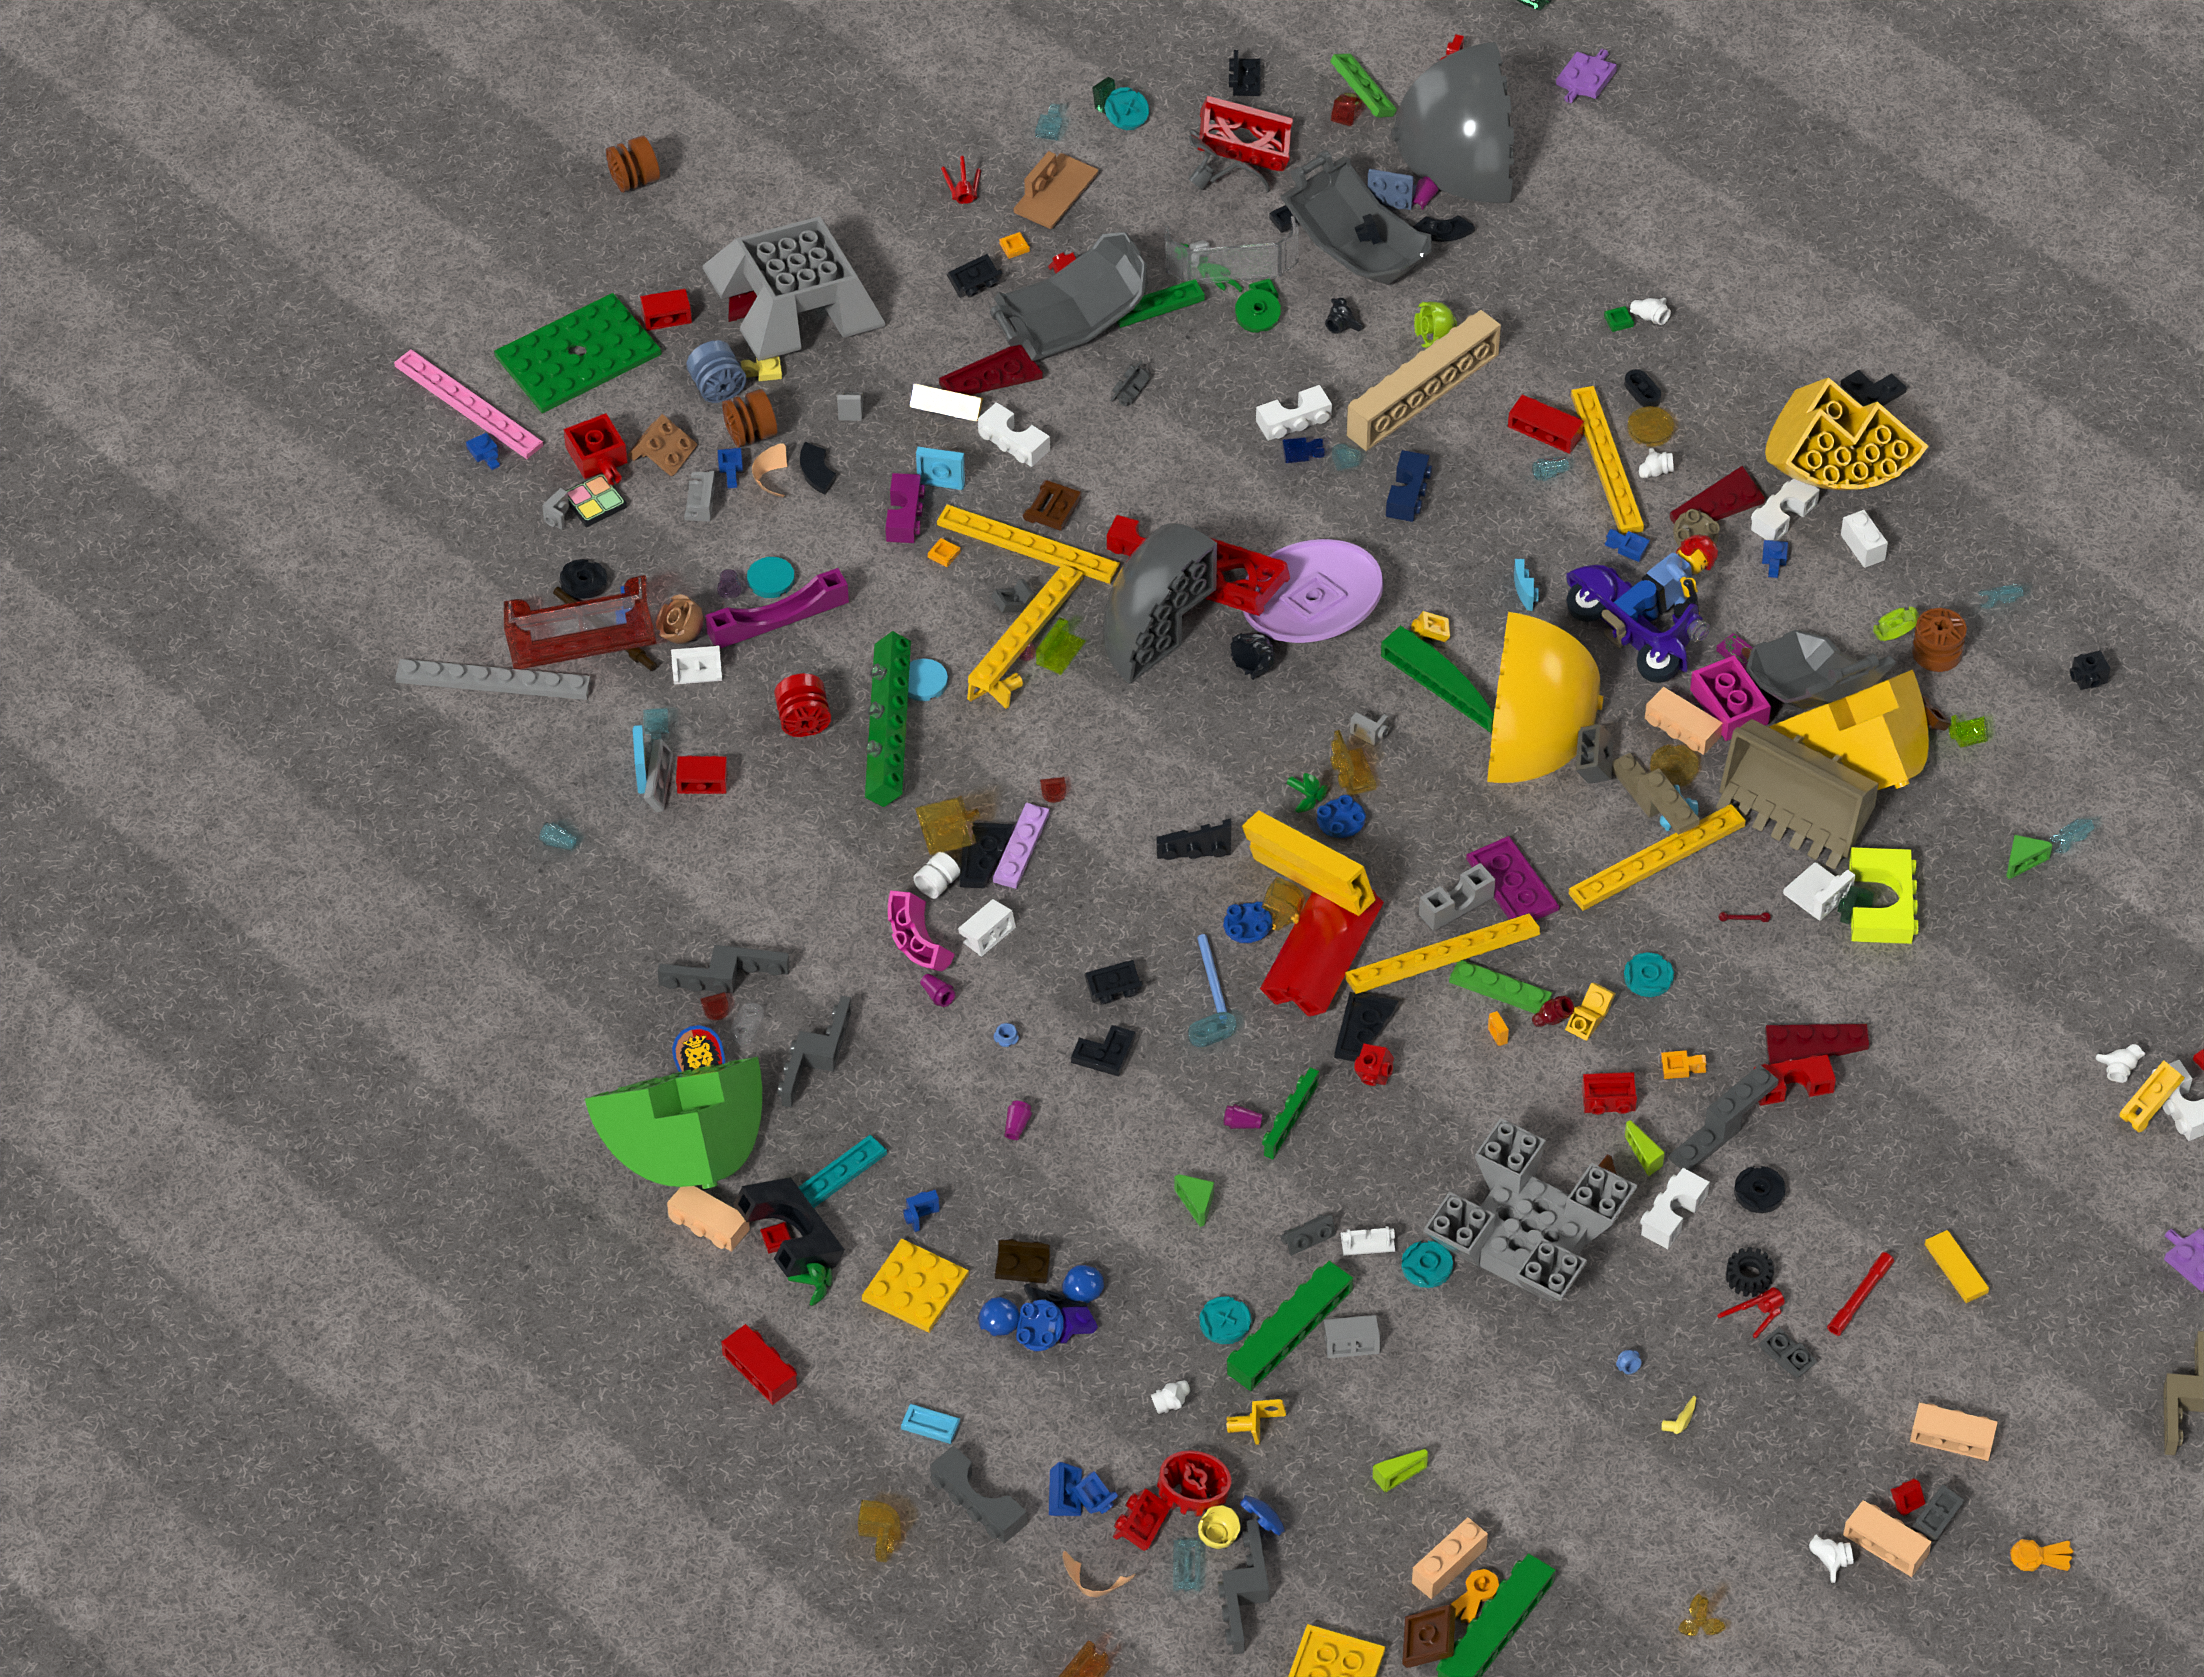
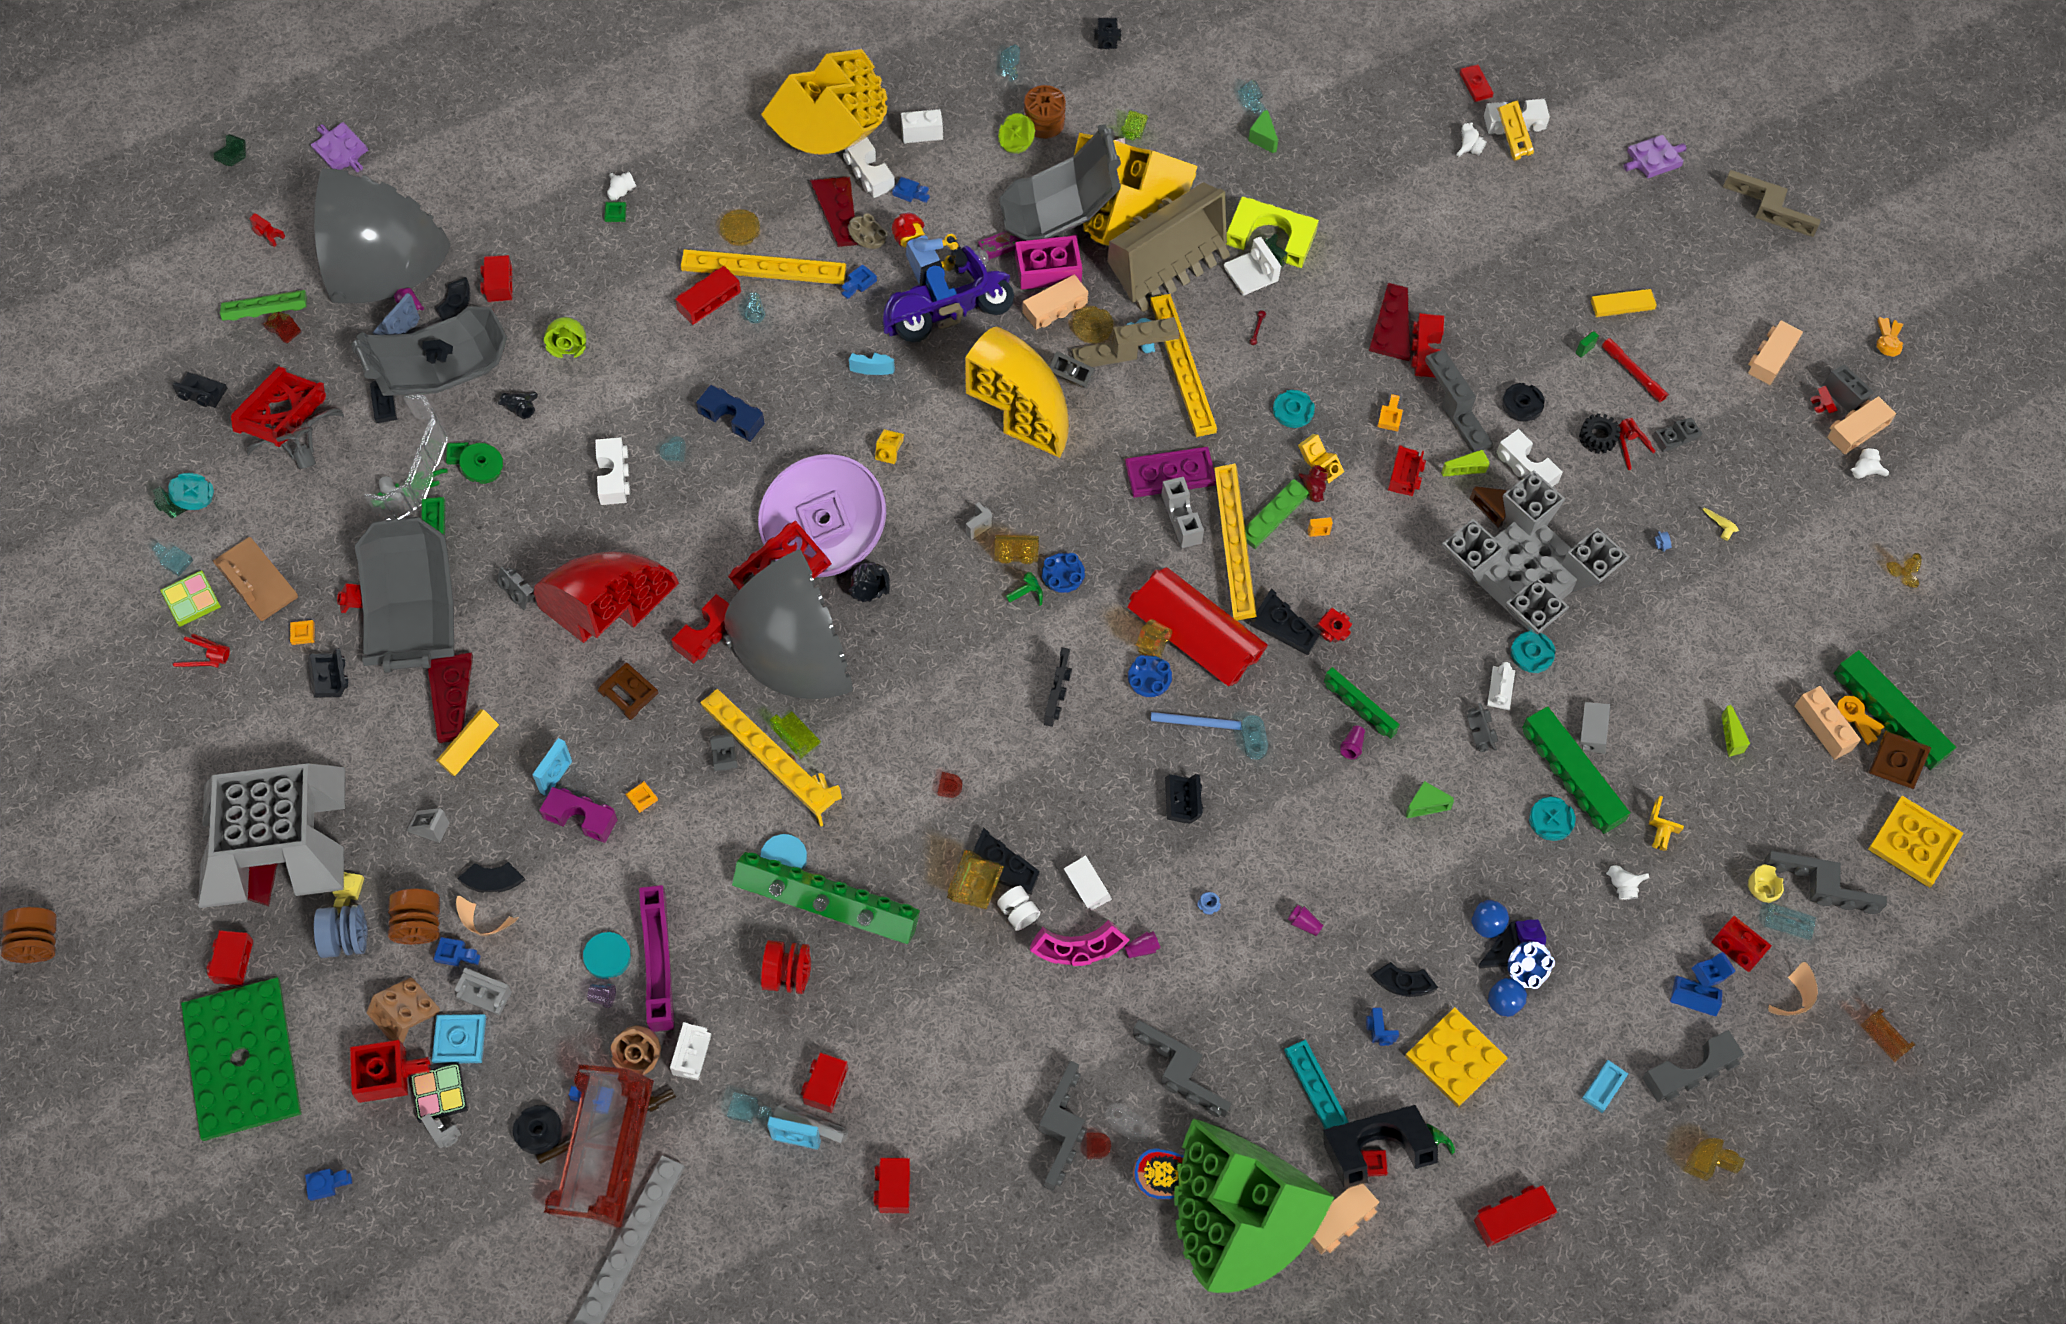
camera: 75 degrees left, 10 degrees up
(469, 404) = (254, 1184): bright pink tile -> none
(556, 836) = (849, 1239): clear light blue cone -> none
(619, 855) = (893, 1185): none -> red brick
(650, 497) = (459, 1038): none -> medium azure tile
(981, 1223) = (1403, 982): none -> black tile
(1015, 153) = (190, 598): none -> tile
(1021, 845) = (1003, 829): lavender plate -> none
(1022, 1261) = (1457, 961): dark brown bracket -> none
(1026, 446) = (519, 709): white arch -> none
(1027, 543) = (660, 725): yellow tile -> none
(1107, 1056) = (1257, 825): black plate -> none
(1140, 433) = (601, 587): none -> red brick
(1198, 1476) = (1722, 882): red gear -> none
(1268, 1517) = (1762, 844): blue dish -> none
(1299, 450) = (653, 480): clear blue plate -> none
(1309, 863) = (1126, 604): yellow brick -> none
(1423, 380) = (626, 363): tan brick -> none
(1436, 674) = (942, 454): green slope -> none
(1483, 250) = (497, 278): none -> red brick
(1646, 391) = (700, 218): black plate -> none
(1656, 464) = (784, 234): white animal -> none
(1868, 392) = (772, 76): black plate -> none
(1871, 1235) = (1587, 344): none -> green tile

